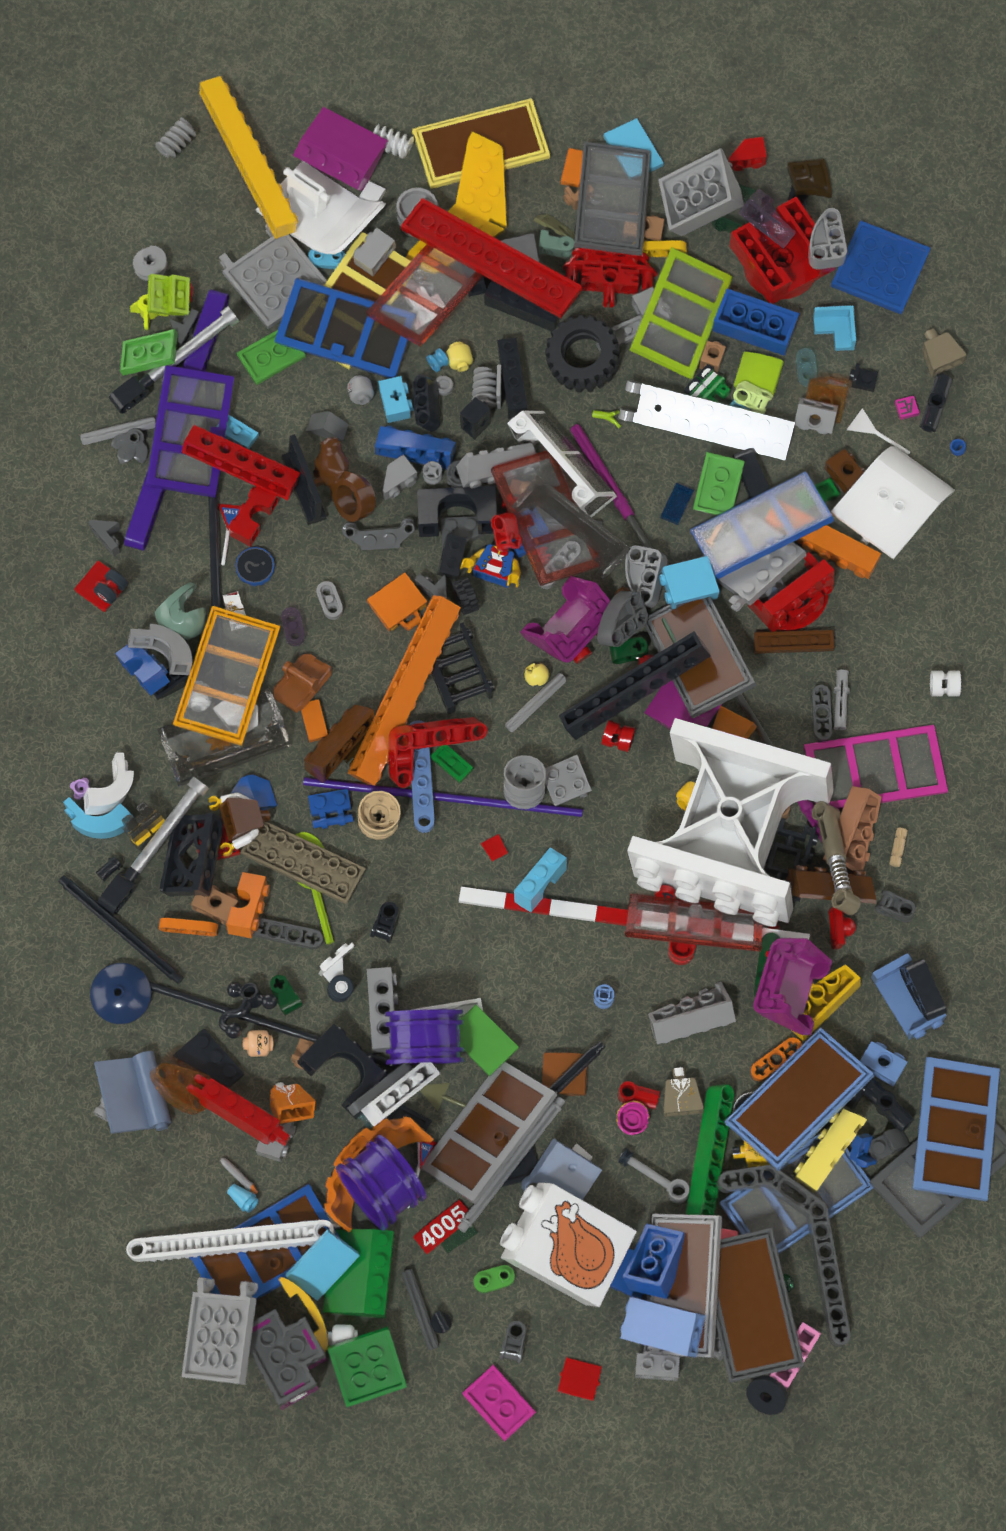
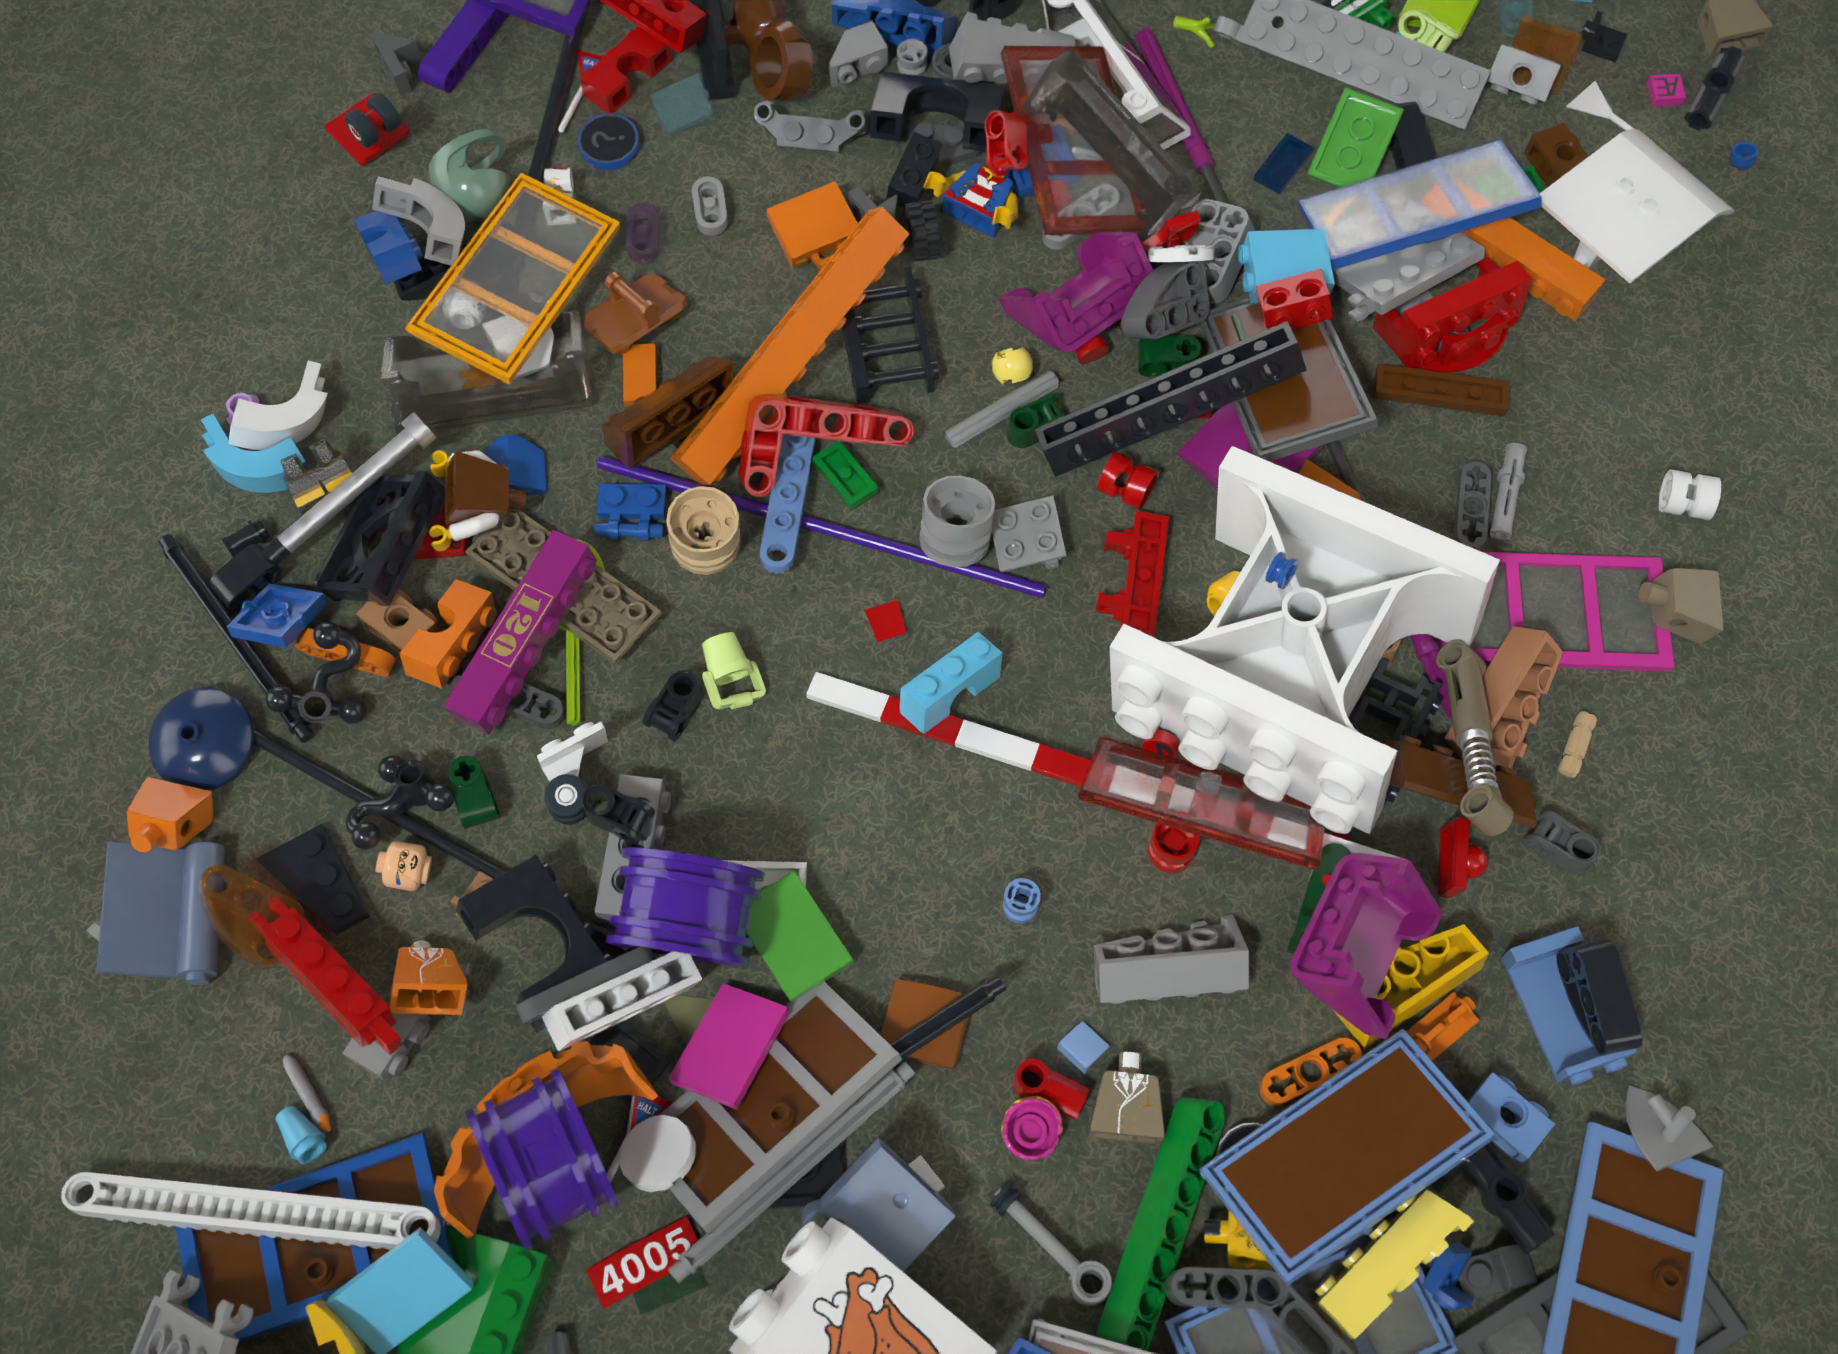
camera: 10 degrees right, 5 degrees down
(119, 1040) = (167, 815): none -> orange torso
(144, 913) = (277, 615): none -> blue plate
(201, 960) = (351, 709): none -> black piece
(290, 897) = (521, 632): none -> magenta brick
(295, 533) = (681, 105): none -> clear light blue piece
(374, 991) = (622, 817): none -> black piece
(409, 891) = (727, 664): none -> yellowish green piece
(437, 1169) = (657, 1153): none -> white tile
(462, 1106) = (729, 1046): none -> dark pink tile
(558, 705) = (1032, 416): none -> dark green piece
(615, 575) = (1174, 231): none -> red tile
(626, 588) = (1181, 253): none -> white tile
(636, 778) = (1145, 553): none -> red hinge
(652, 1069) = (1083, 1047): none -> light blue slope
(696, 607) = (1295, 299): none -> red brick
(713, 790) = (1281, 570): none -> blue bush
(843, 1021) = (1444, 1025): none -> orange hinge
(948, 751) = (1686, 603): none -> dark tan torso
(965, 1053) = (1663, 1130): none -> light grey shield

